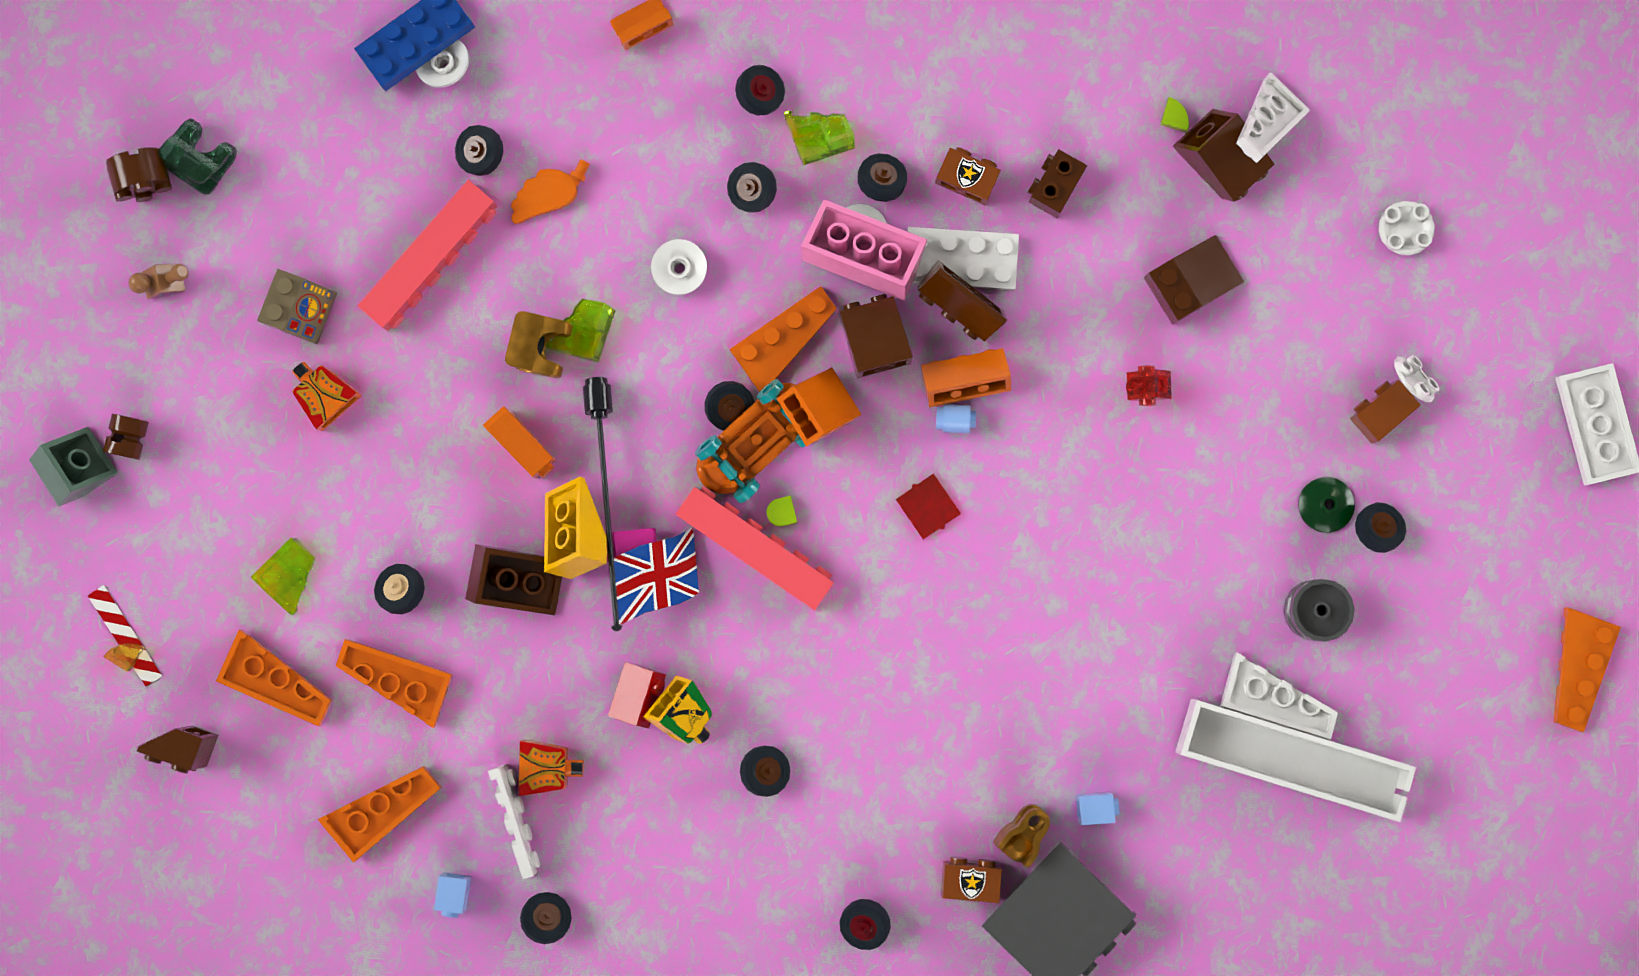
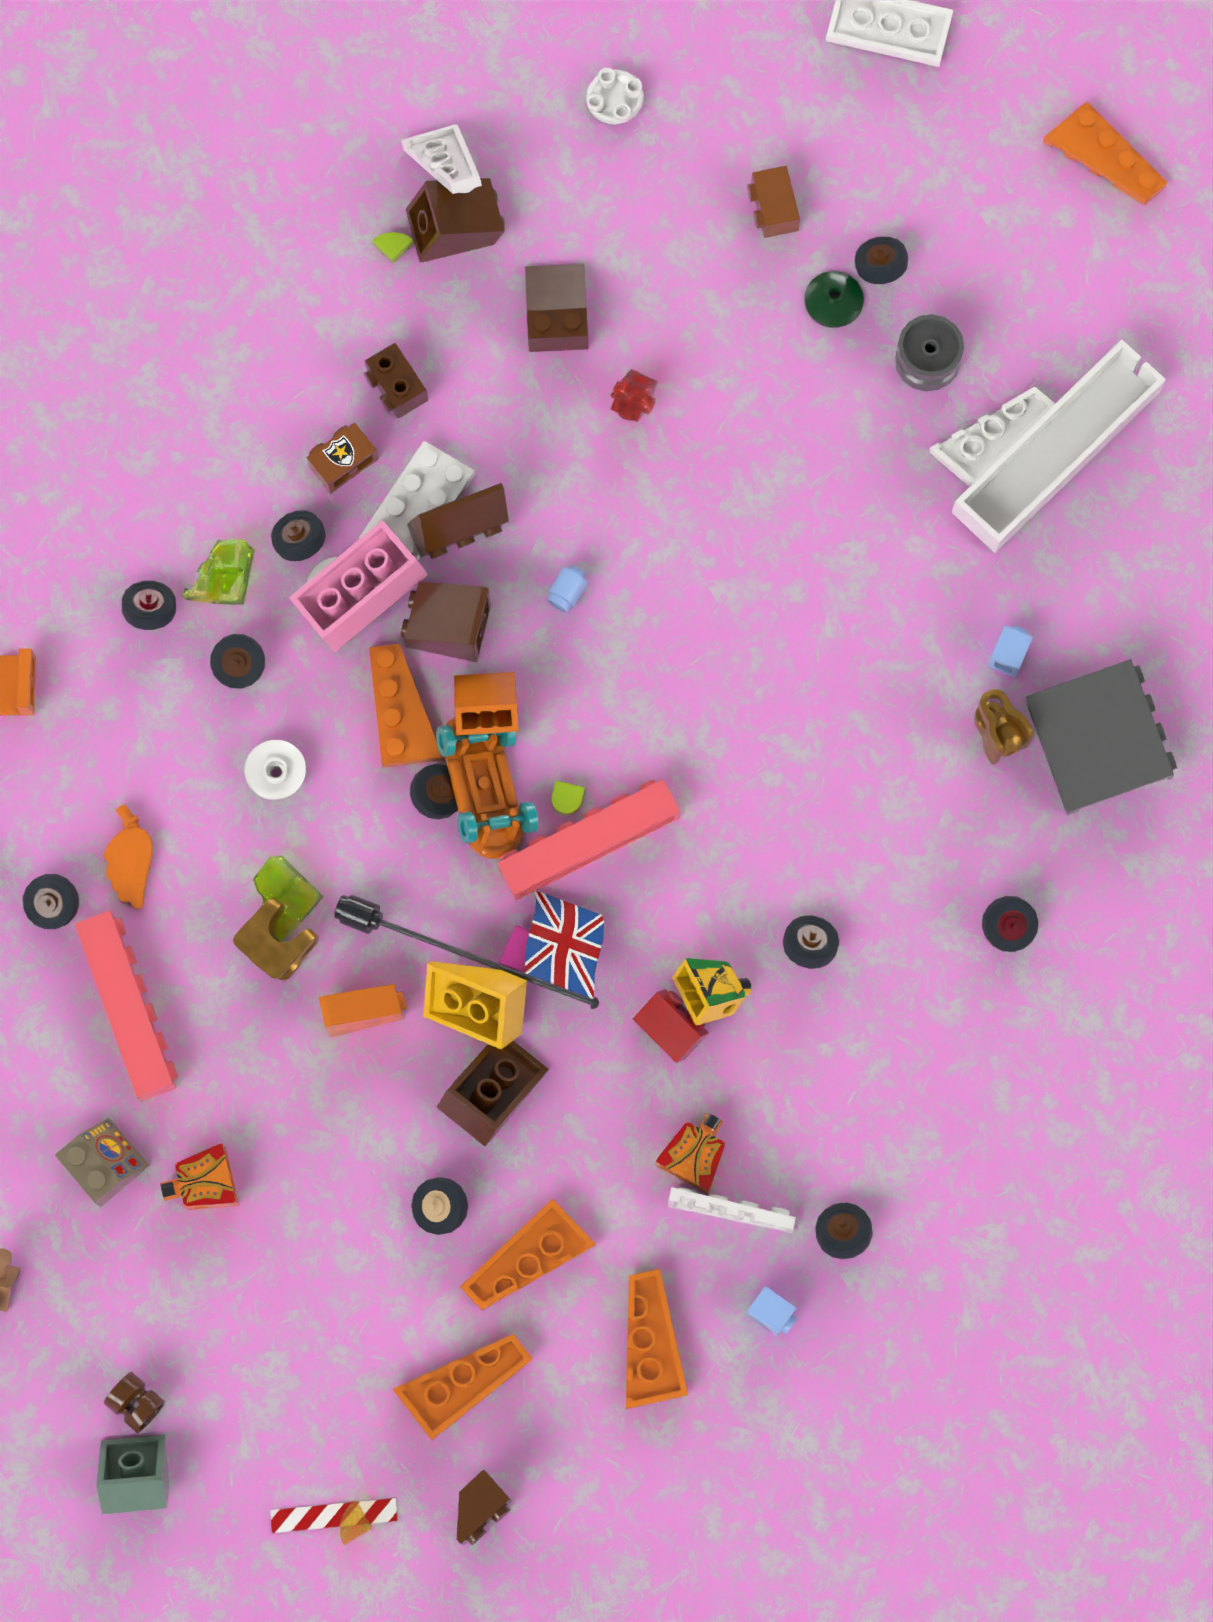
camera: 60 degrees left, 10 degrees down
(286, 574) = (363, 1314): clear neon green slope -> none
(928, 506) = (637, 659): clear red piece -> none
(966, 377) = (533, 556): orange brick -> none
(971, 880) = (1019, 803): dark orange brick -> none
(1415, 379) = (759, 160): white dish -> none

